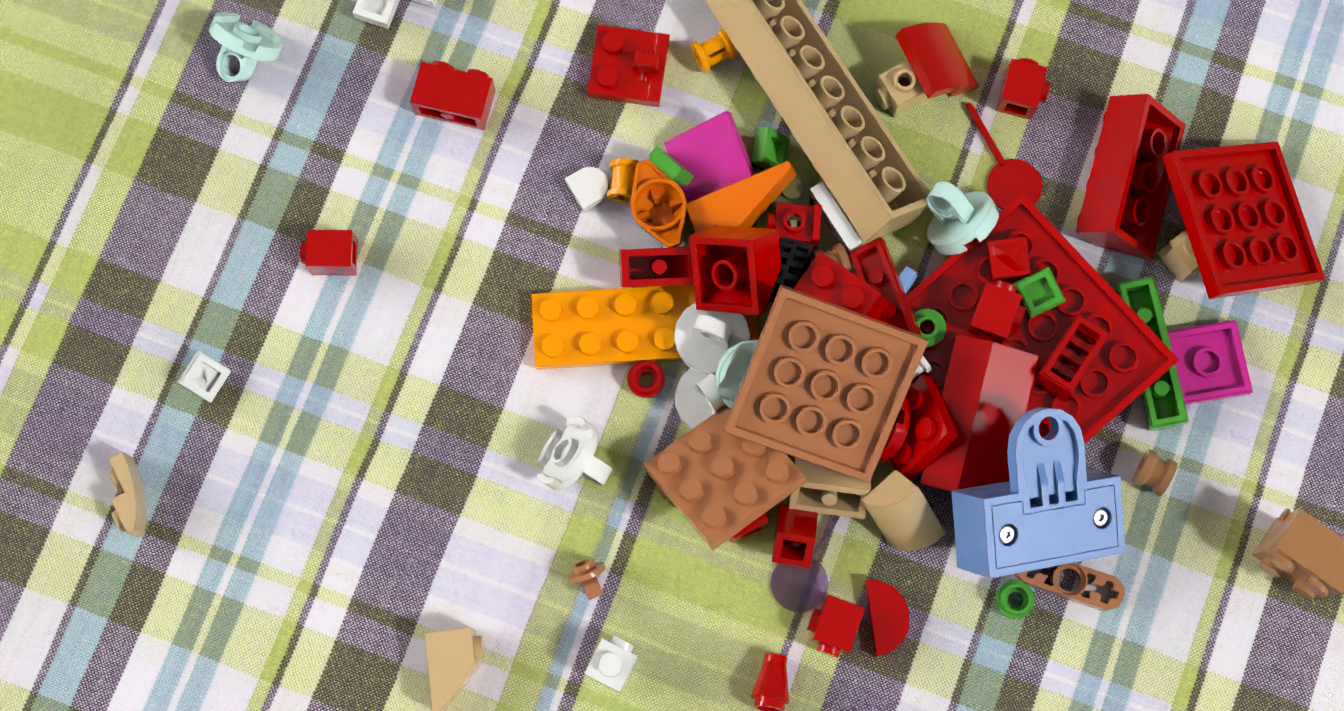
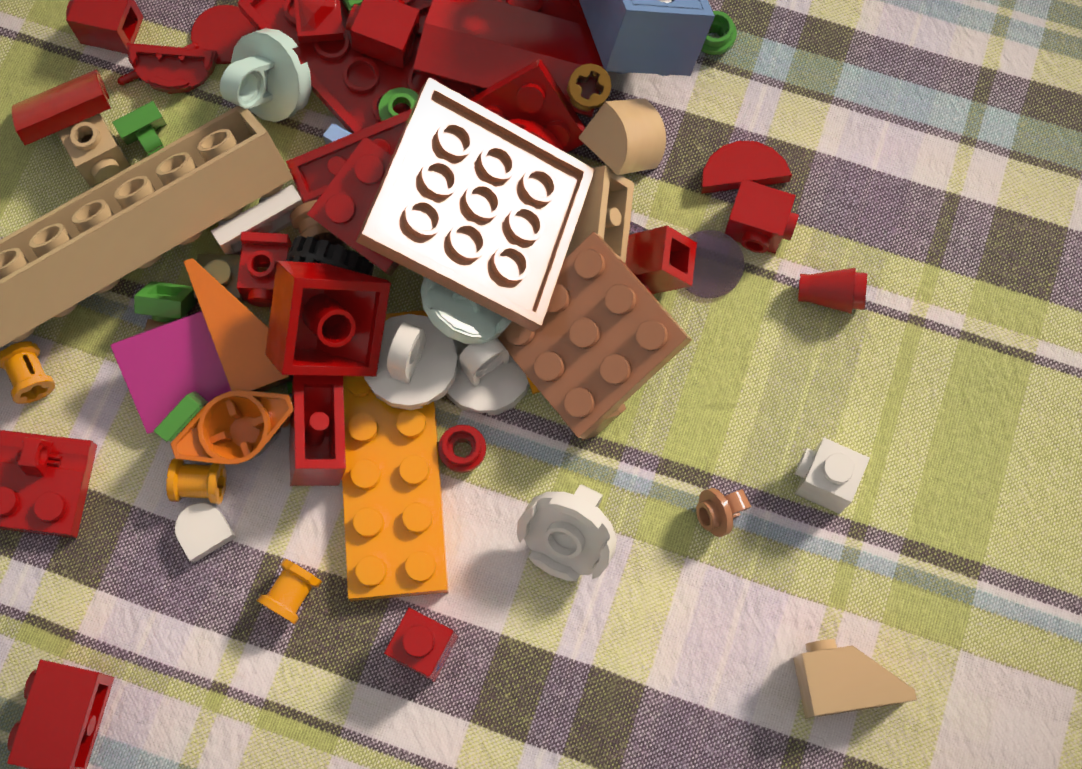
camera: 90 degrees left, 5 degrees down
(492, 346) = (421, 644): none -> red brick
(538, 251) = (289, 591): none -> light orange bush
(920, 125) = (142, 126): none -> bright green tile
(936, 465) = (603, 84): none -> pearl gold bush
(977, 144) = (171, 68): none -> red tile

